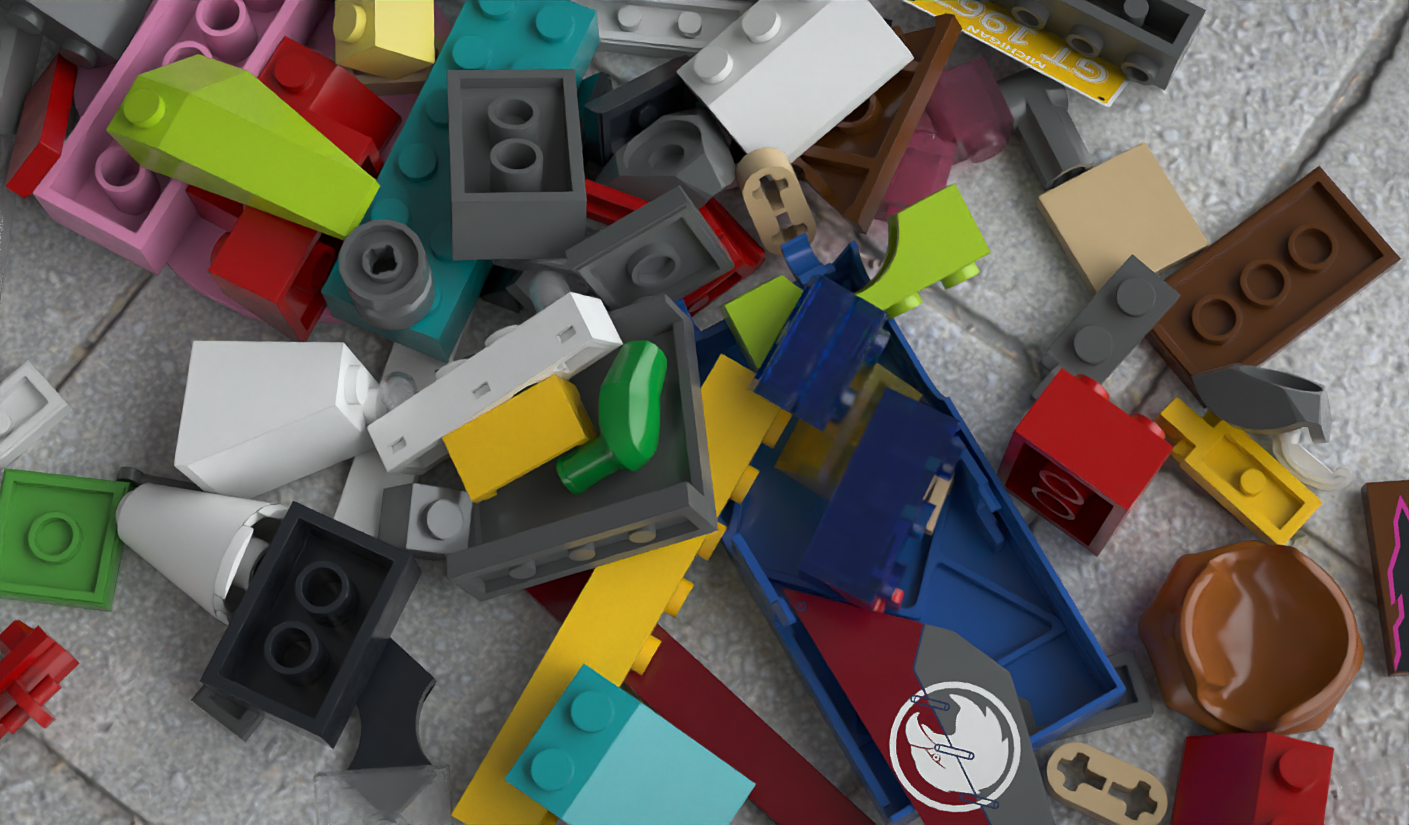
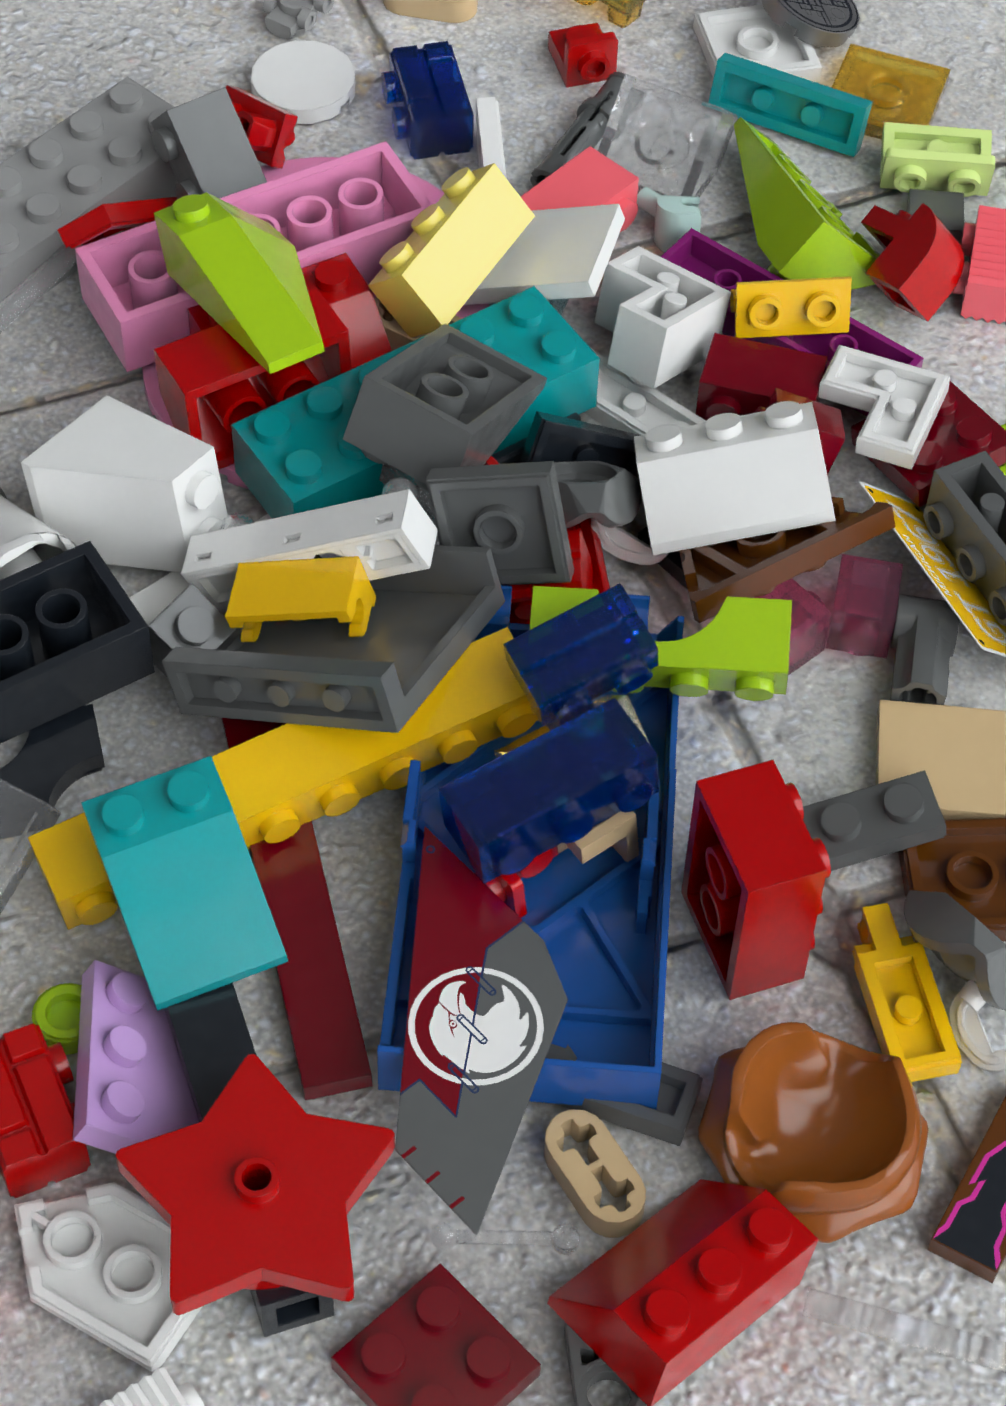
camera: 30 degrees right, 20 degrees down
(387, 274) = (283, 418): dark grey wheel -> none
(626, 419) = (388, 617): green arm -> none
(766, 206) = (661, 568): tan beam -> none

